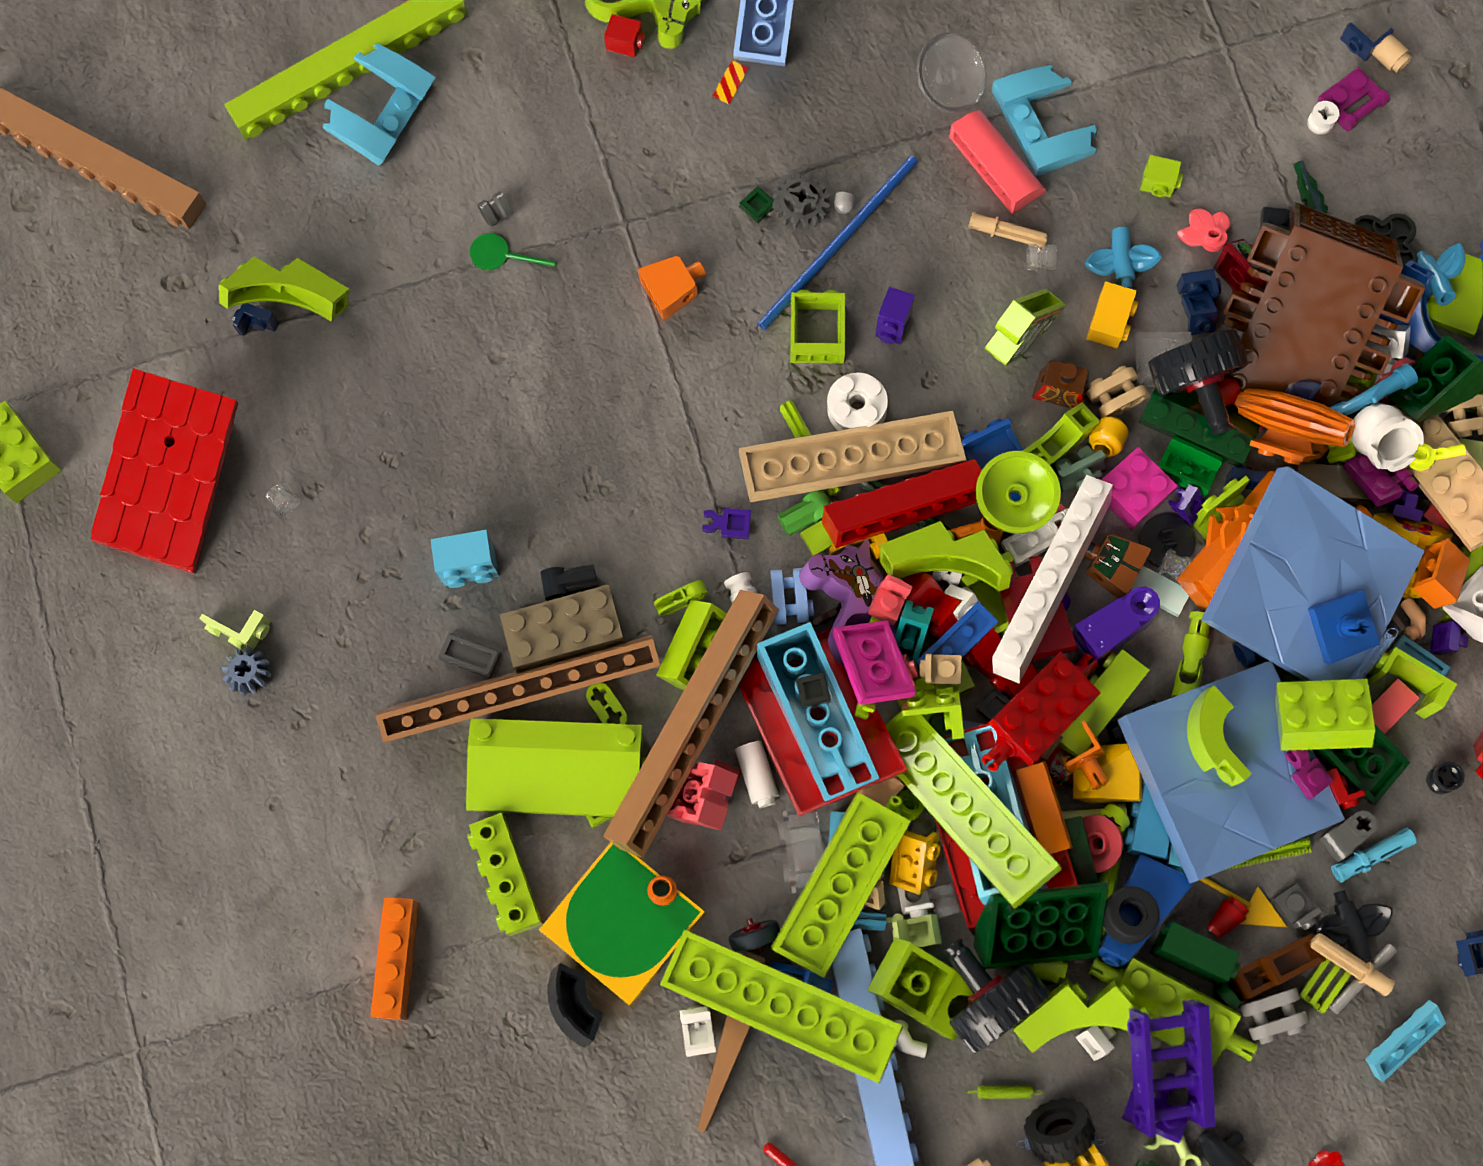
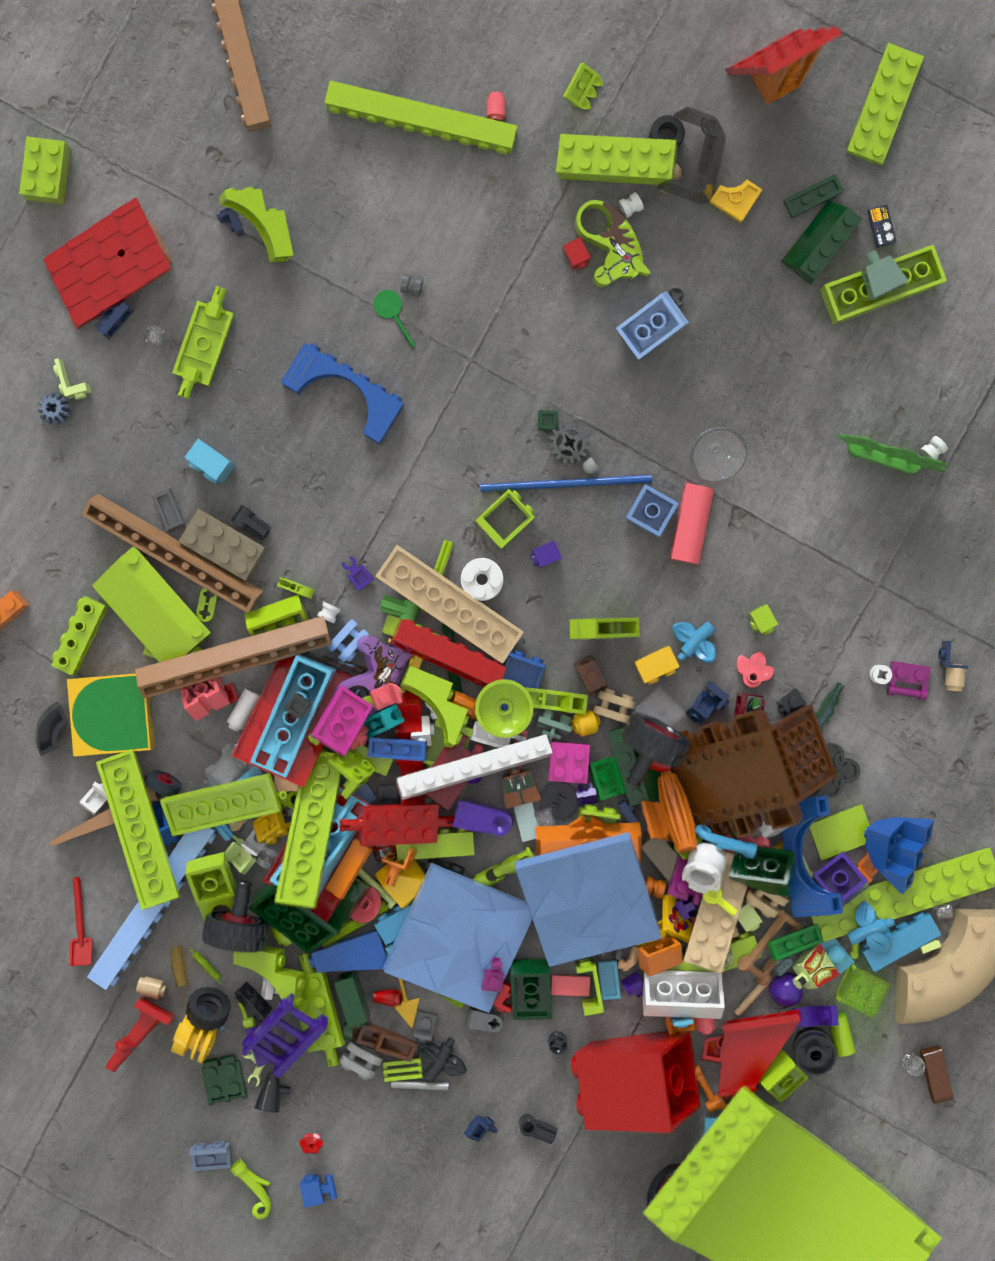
camera: 40 degrees right, 15 degrees up
(223, 523) = (113, 319): none -> dark blue bracket
(340, 458) = (203, 343): none -> lime plate
(378, 139) = (437, 170): medium azure wedge -> none
(477, 368) = (313, 365): none -> blue arch
(666, 899) = (146, 720): orange piece -> none
(670, 284) = (457, 419): orange torso -> none
(730, 82) = (605, 337): sticker -> none
(907, 1045) = (185, 893): white arm -> none
(941, 669) = (374, 754): tan bracket -> none
(947, 182) = (651, 511): none -> medium blue brick
(976, 1124) = (178, 966): none -> clear yellow pin
(1007, 230) = (655, 566): tan axle -> none
(1041, 152) = (738, 498): medium azure wedge -> none
(1041, 257) = (654, 598): clear wheel -> none
(1109, 1076) = (259, 1007): none -> black hinge
(1114, 1105) = (248, 1022): none -> lime hand
(1116, 815) = (384, 903): lime tile -> none
(1143, 902) = (343, 965): black tyre -> none
(1207, 737) = (460, 913): lime arch -> none
(1304, 389) = (697, 803): dark blue tile -> none
(1324, 714) = (525, 961): lime brick -> none
(1344, 626) = (580, 933): blue tile -> none
(1362, 971) = (419, 1076): tan axle -> none
(1363, 860) = (480, 1038): medium azure pin -> none
(1374, 658) = (575, 959): light blue piece -> none
(1405, 1040) = (406, 1130): medium azure plate -> none
(1447, 267) = (839, 814): dark azure plant -> none

